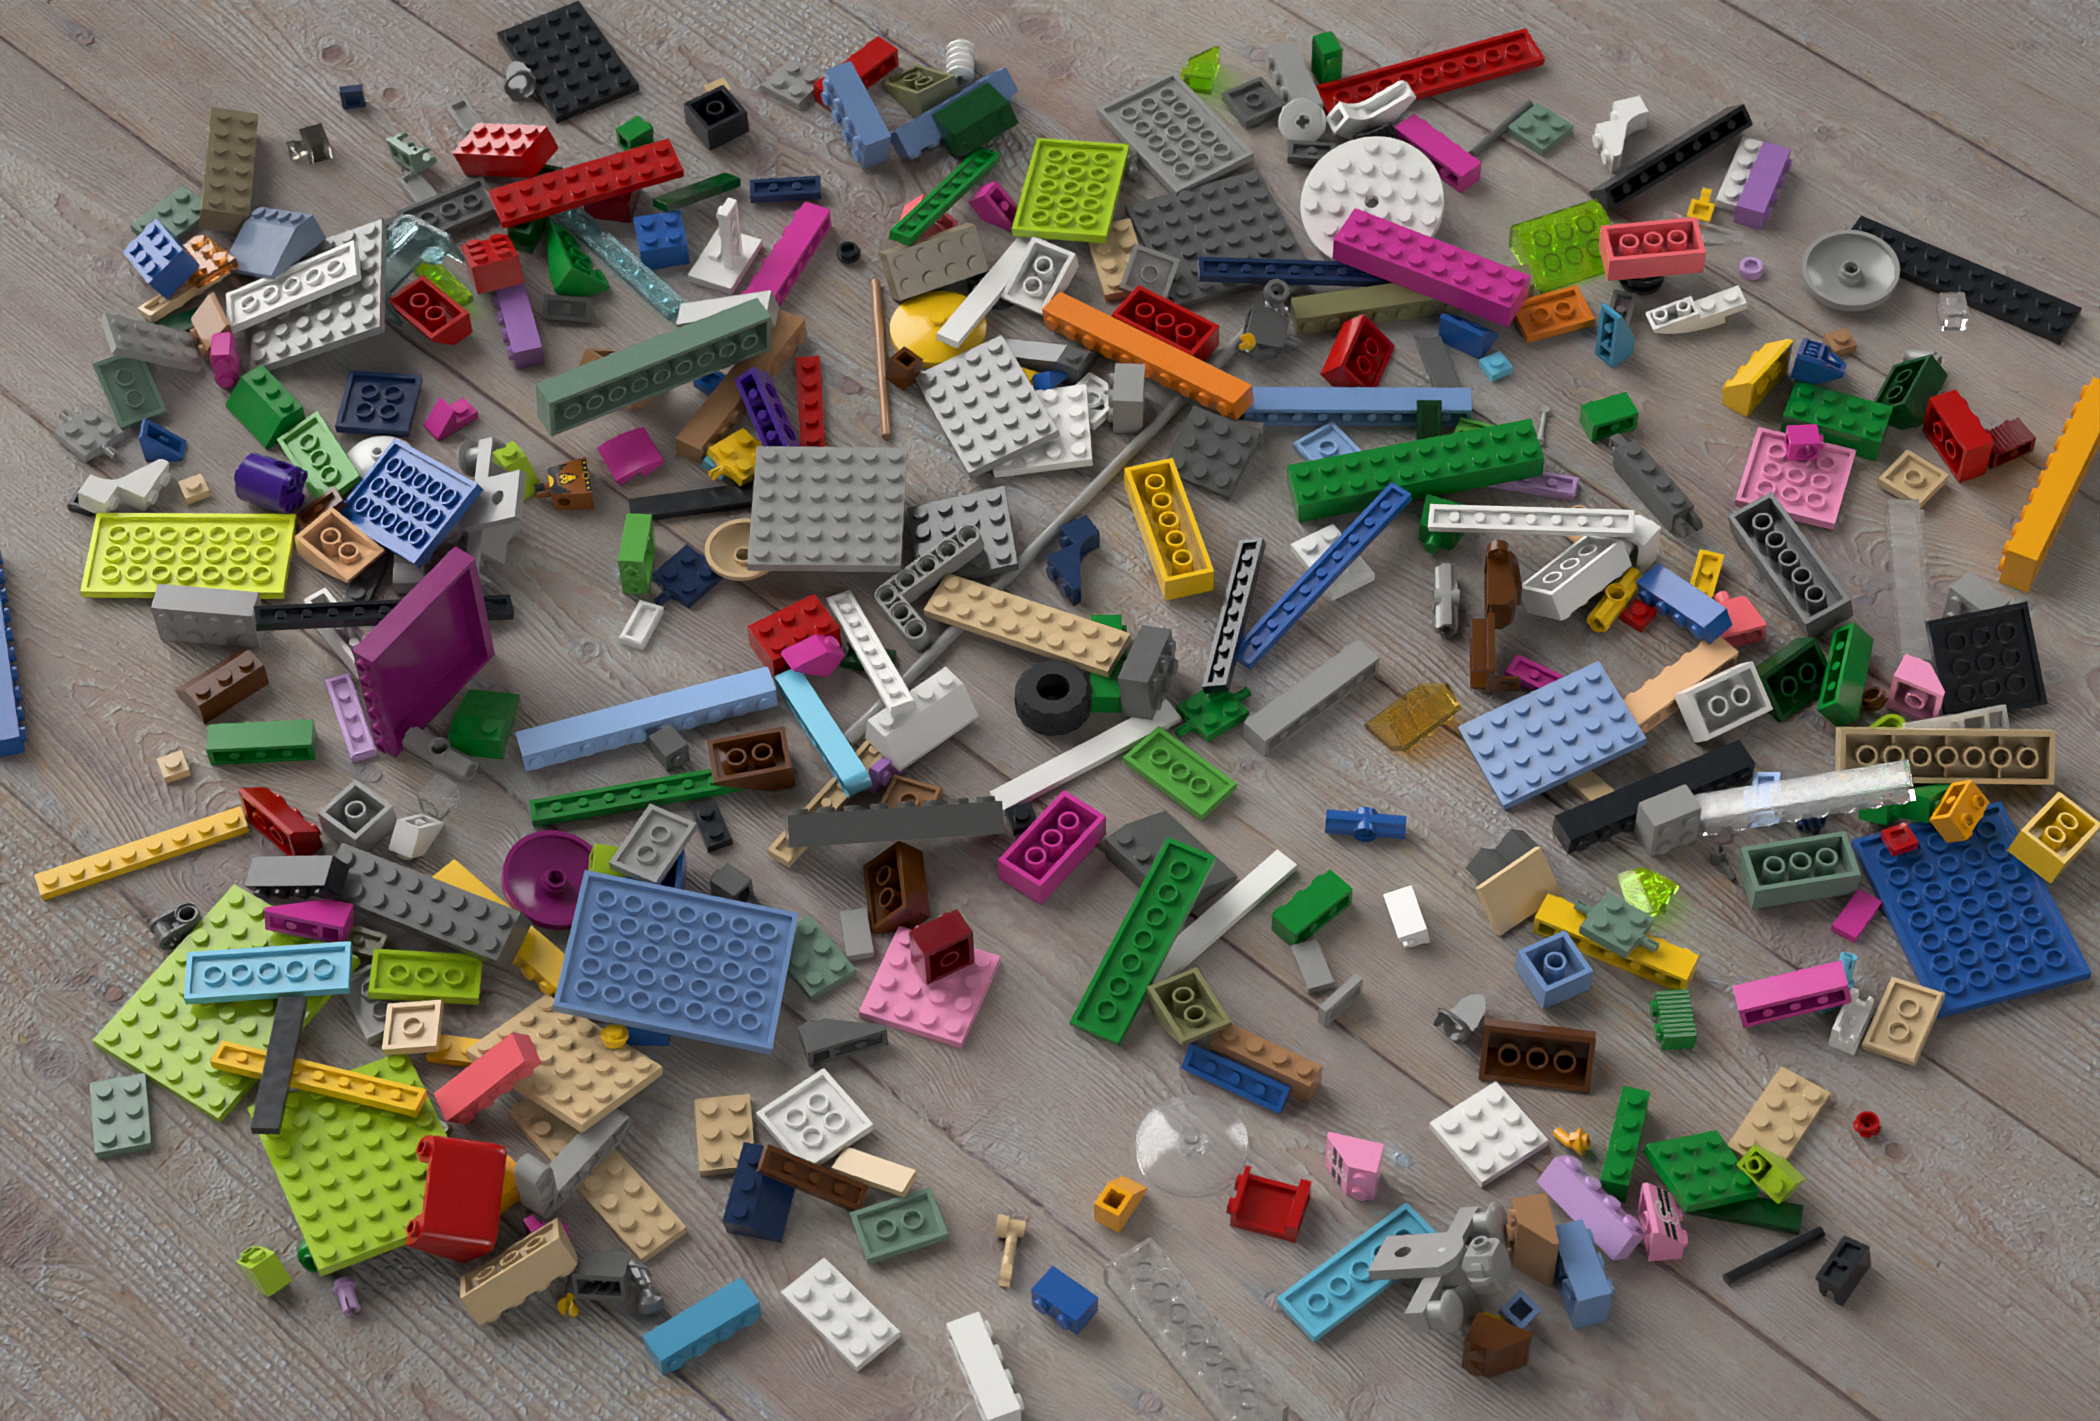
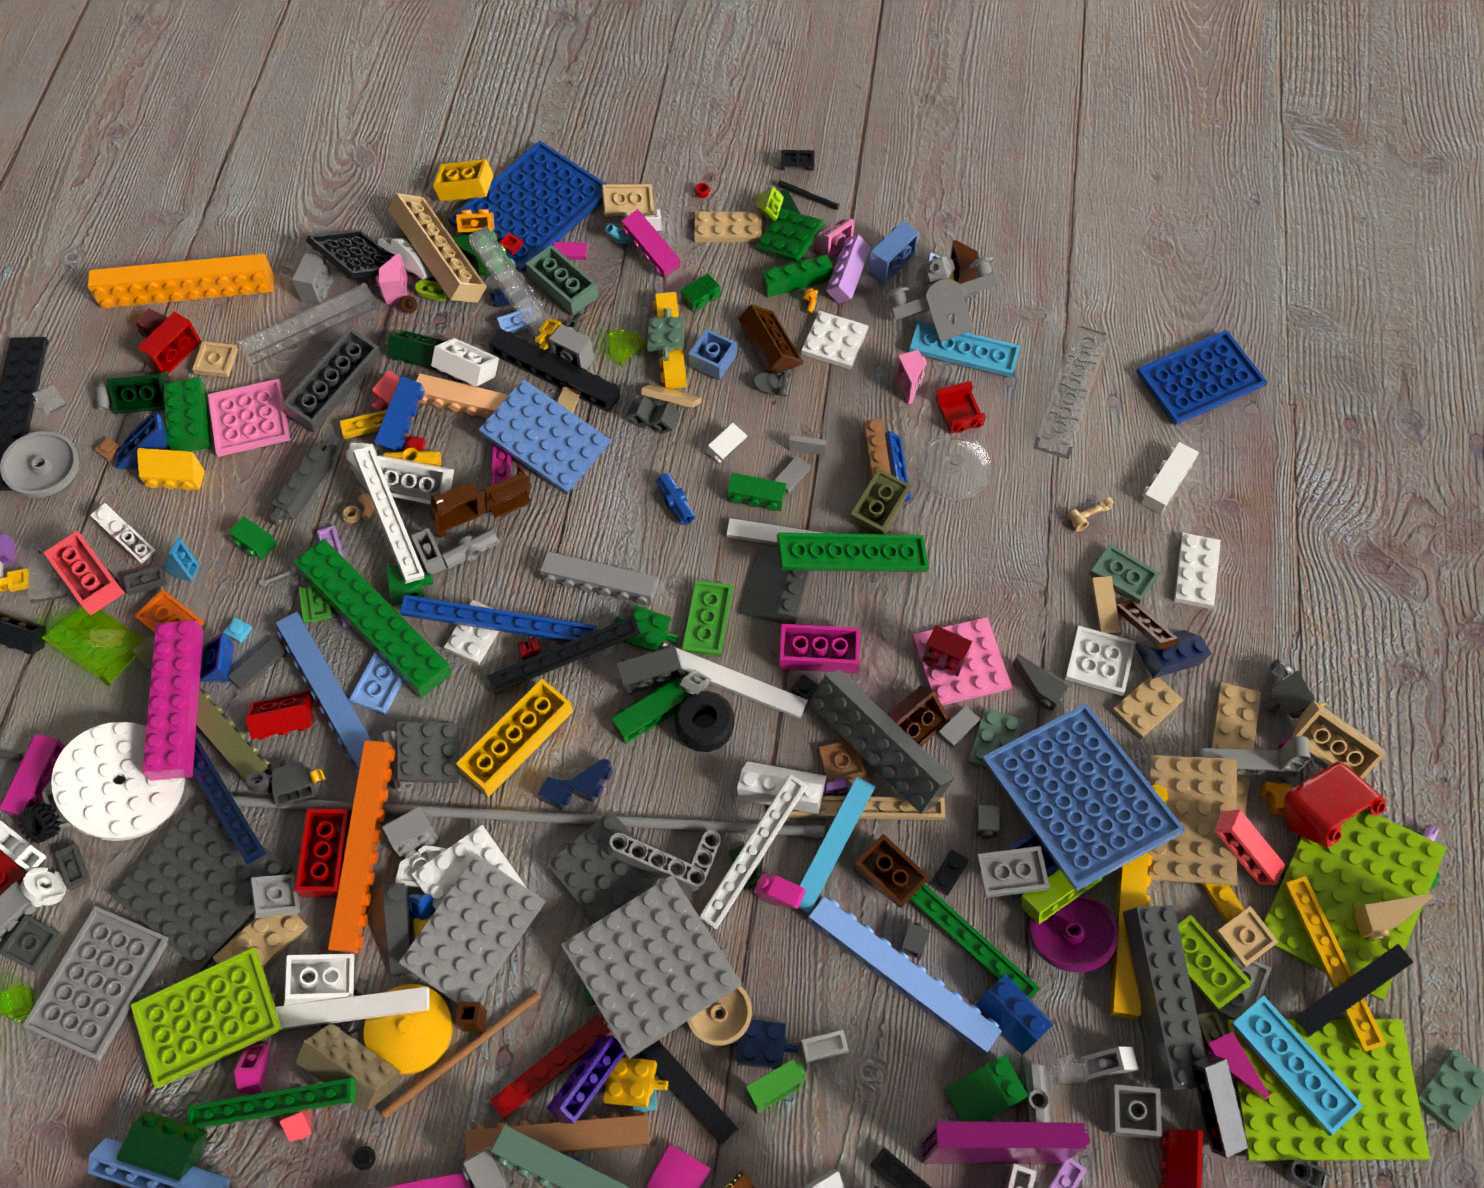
camera: 125 degrees left, 10 degrees up
(263, 1270) = (1461, 899): lime slope -> none
(312, 1138) = (1379, 918): none -> tan slope
(528, 783) = (1015, 1013): none -> blue slope
(702, 1326) = (1270, 629): dark azure brick -> none
(787, 627) = (766, 923): red brick -> none
(1027, 625) = (659, 772): tan plate -> none
(1064, 1300) = (1100, 463): blue brick -> none
(1101, 705) = (695, 682): none -> light grey plate
(1118, 1202) = (1020, 473): light orange slope -> none
(1270, 592) = (533, 647): none -> dark red wheel
(1414, 716) = (575, 517): clear yellow slope -> none
(1428, 418) = (323, 632): dark green tile -> none
(1464, 553) = (428, 551): none -> light grey brick
(1532, 1237) = (891, 270): medium nougat slope -> none
(1708, 798) = (546, 332): none -> yellow plate
(1750, 268) = (60, 529): lavender tile -> none
(1803, 442) = (222, 416): dark pink brick -> none
(1845, 675) = (401, 320): green brick -> none

